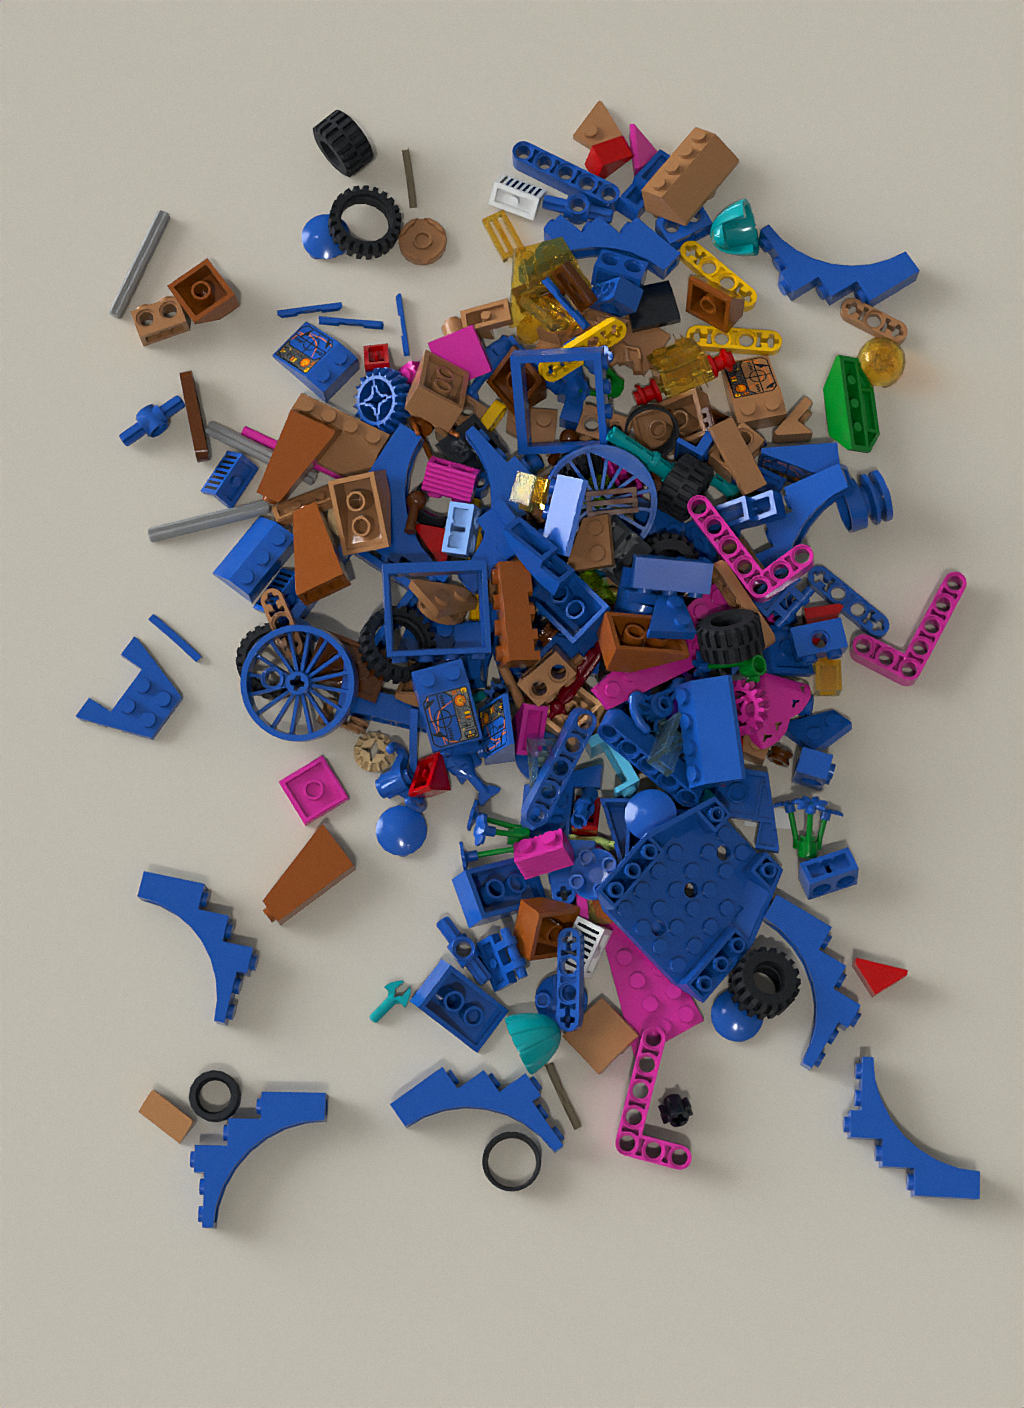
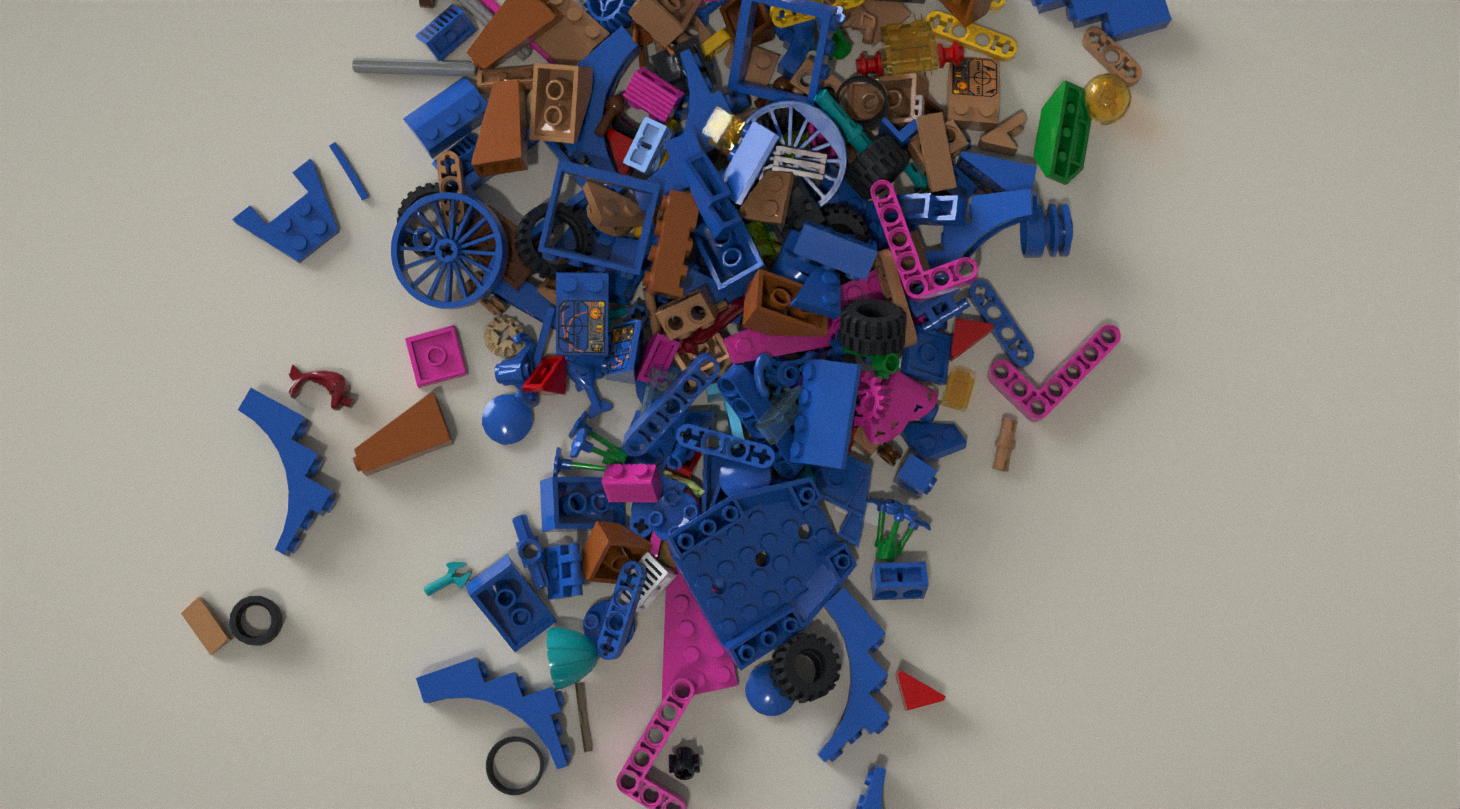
camera: 10 degrees right, 5 degrees up
(219, 1162) = (270, 666): blue arch -> none
(220, 842) = (333, 381): none -> dark red animal
(547, 634) = (698, 273): reddish brown bush -> none
(602, 1036) = (636, 671): medium nougat slope -> none
(624, 787) = (724, 450): none -> blue beam
(829, 631) = (972, 348): blue brick -> none
(888, 715) = (1005, 444): none -> medium nougat pin

